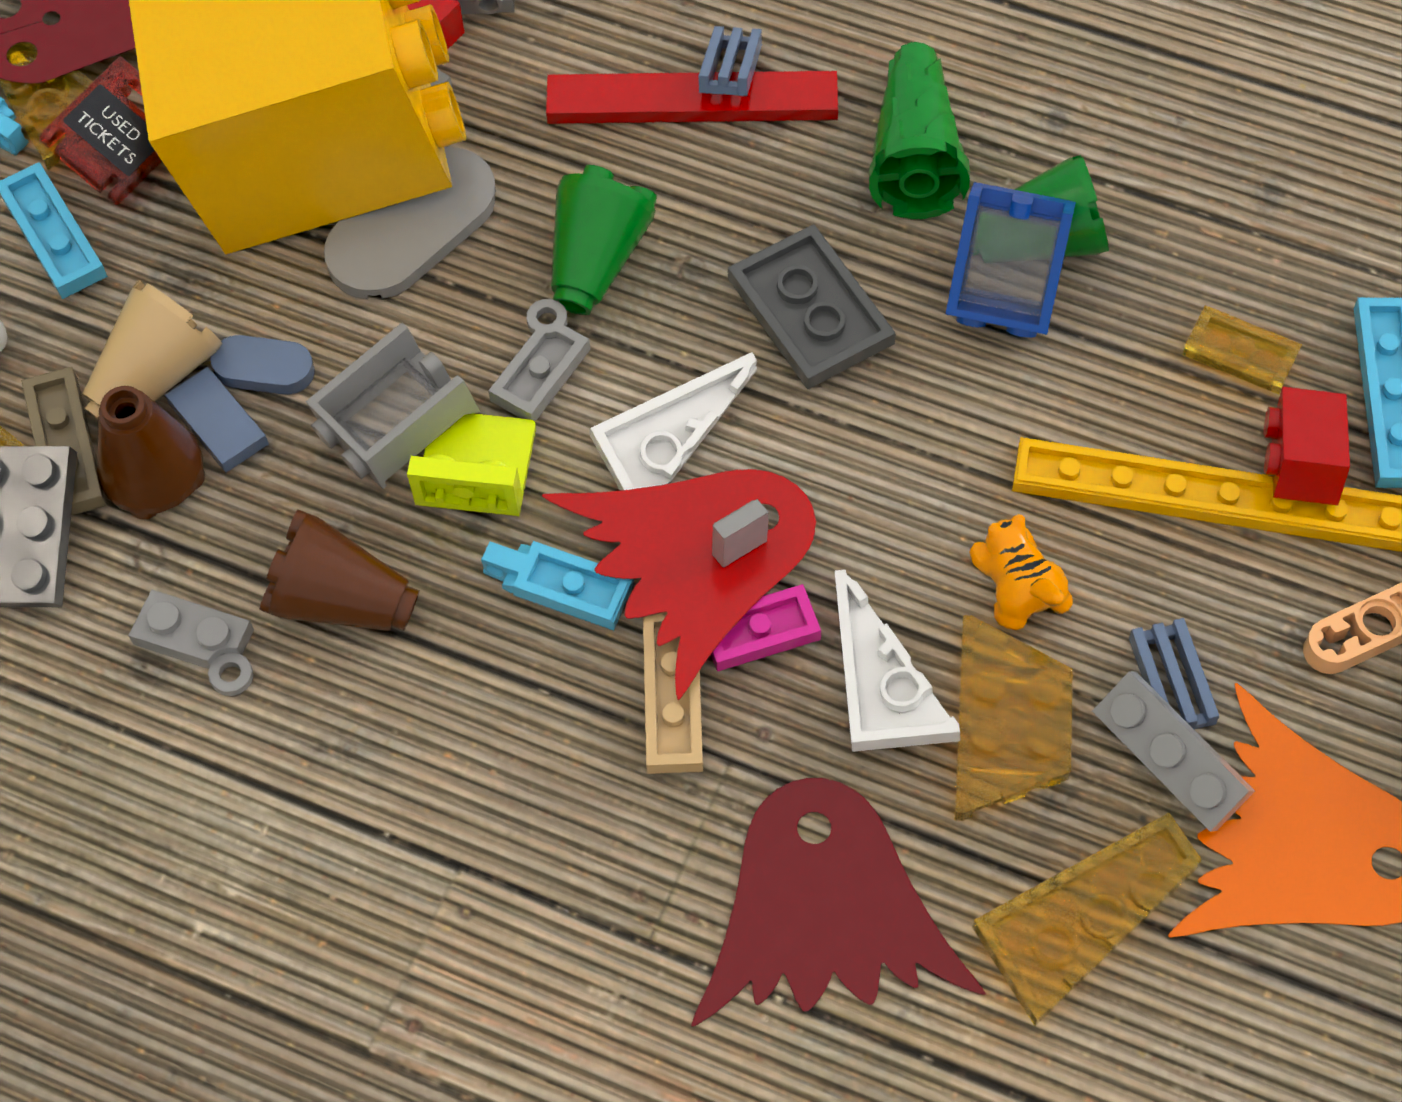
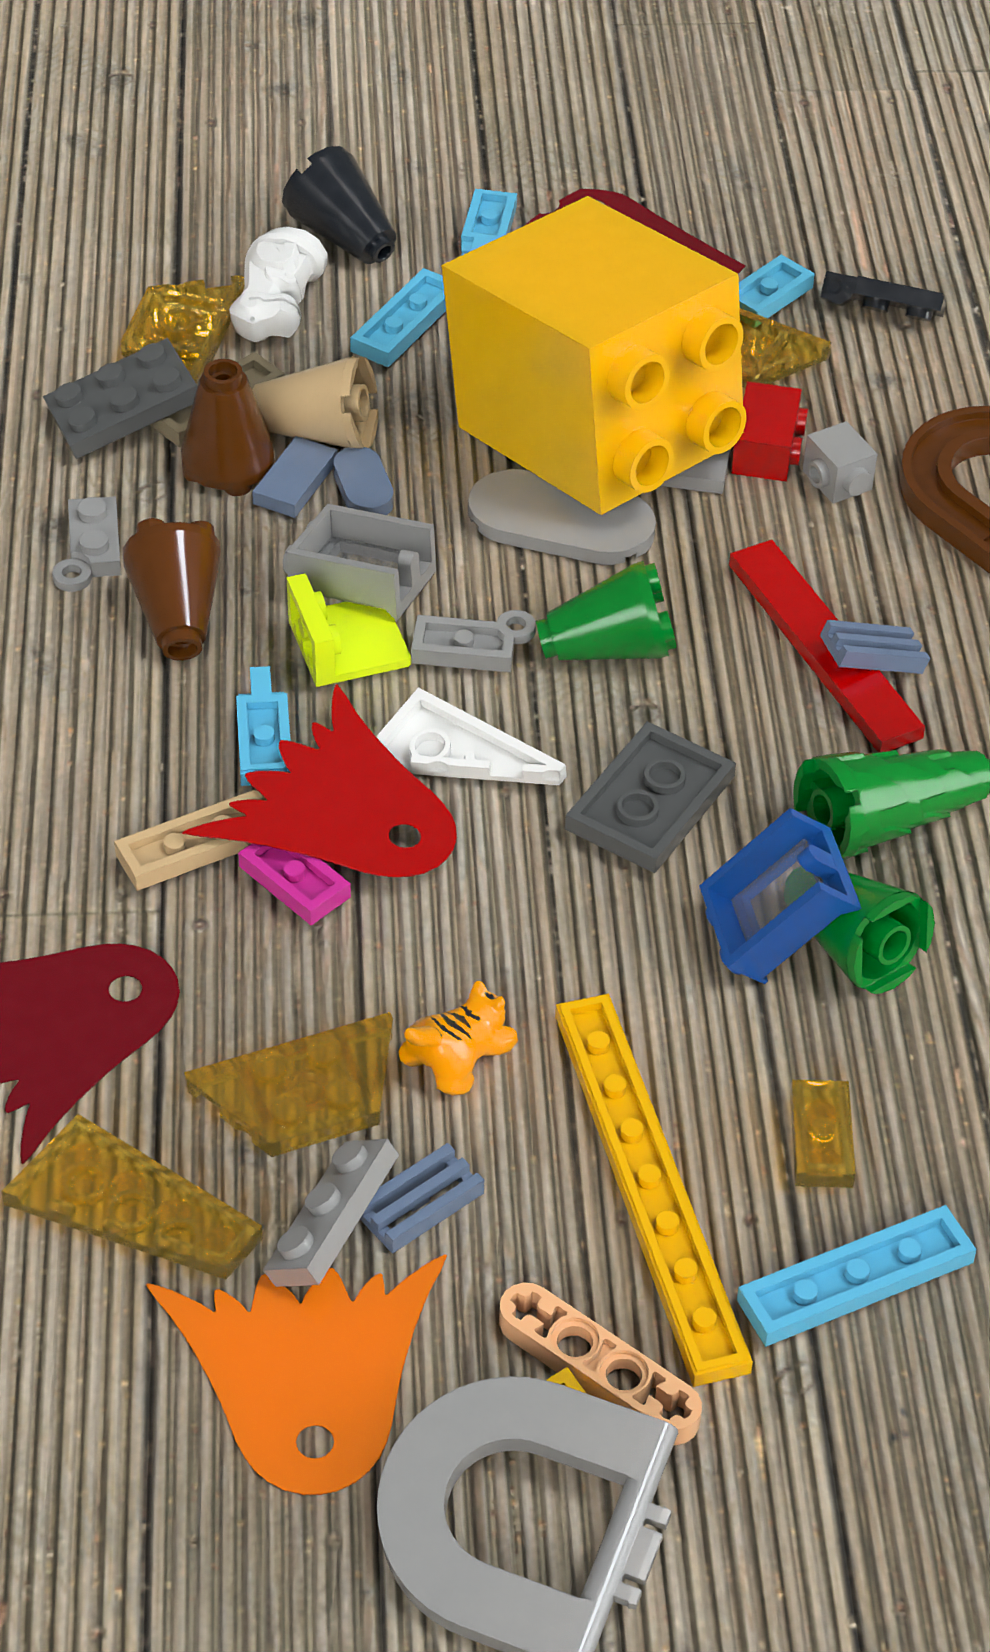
camera: 60 degrees right, 15 degrees down
(739, 532) = (362, 809): light grey tile -> none
(885, 693) = (281, 979): white wing -> none
(1308, 445) = (732, 1210): red brick -> none

